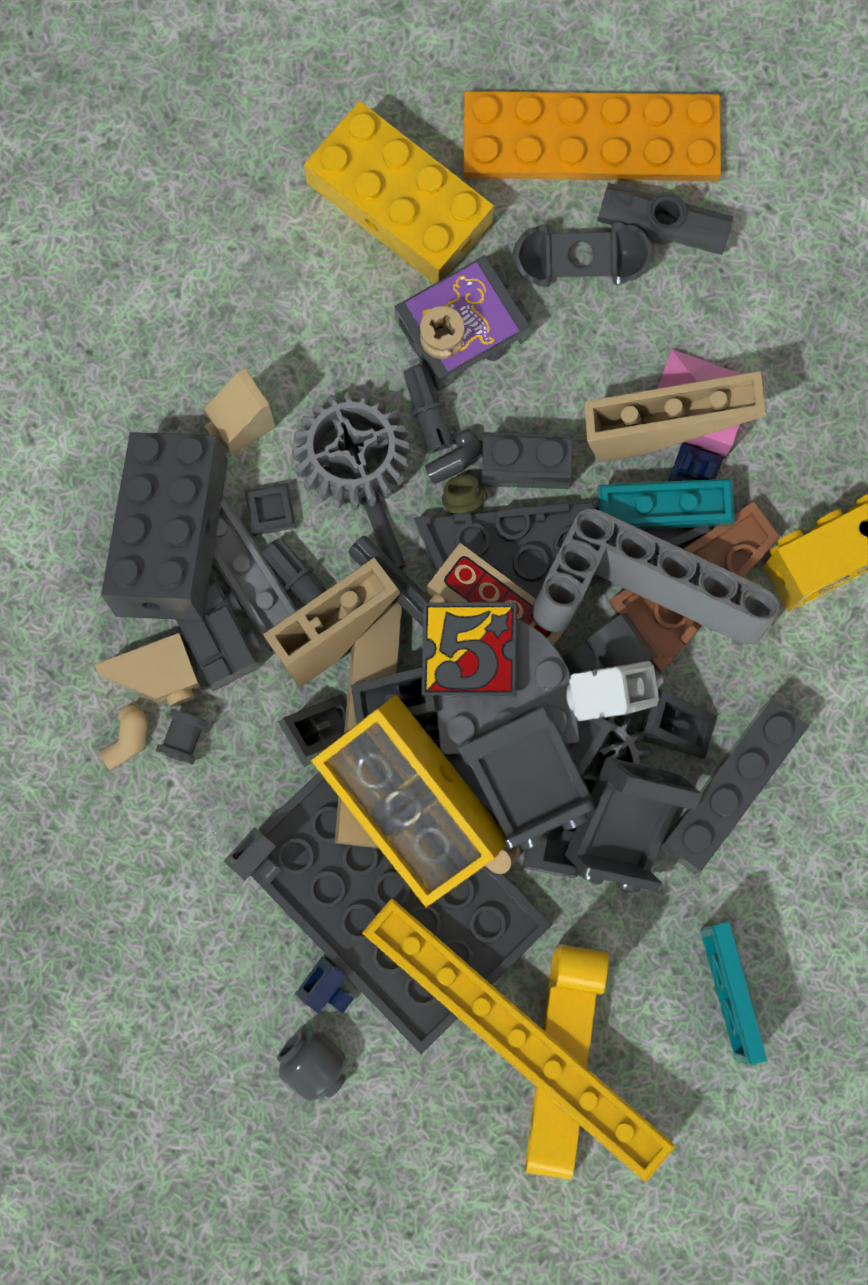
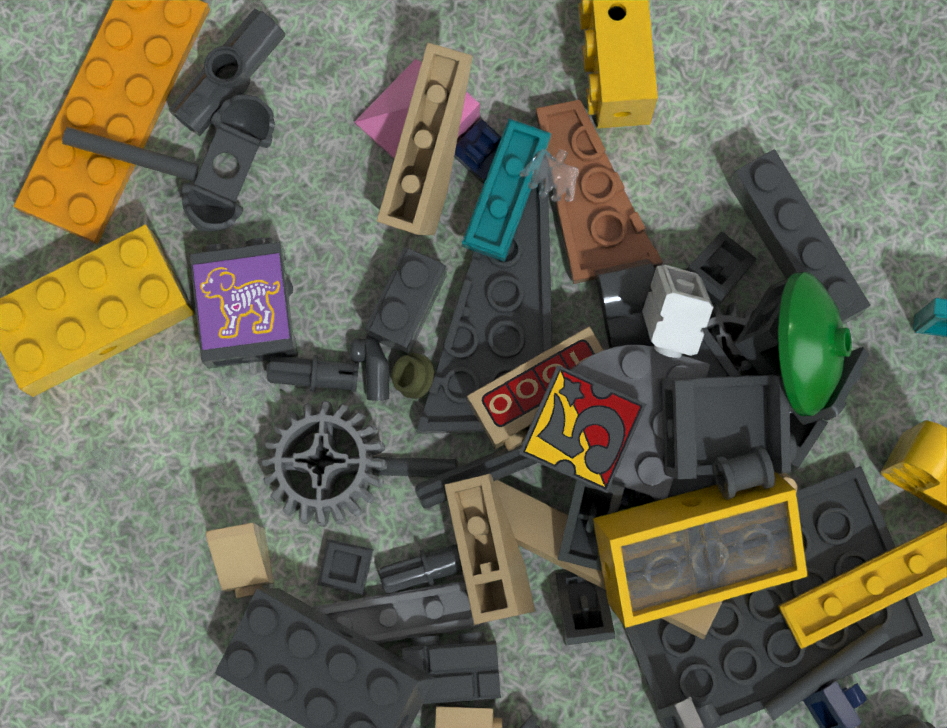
camera: 60 degrees left, 0 degrees up
(351, 964) = (826, 672): none -> dark grey bar
(439, 342) = (257, 333): tan wheel -> none
(491, 806) = (743, 472): none -> dark grey bush
(552, 167) = (130, 154): none -> dark grey bar
(633, 818) = (810, 343): none -> green dish
(654, 571) = (567, 229): light grey beam -> none
(699, 534) = (553, 175): none -> clear piece

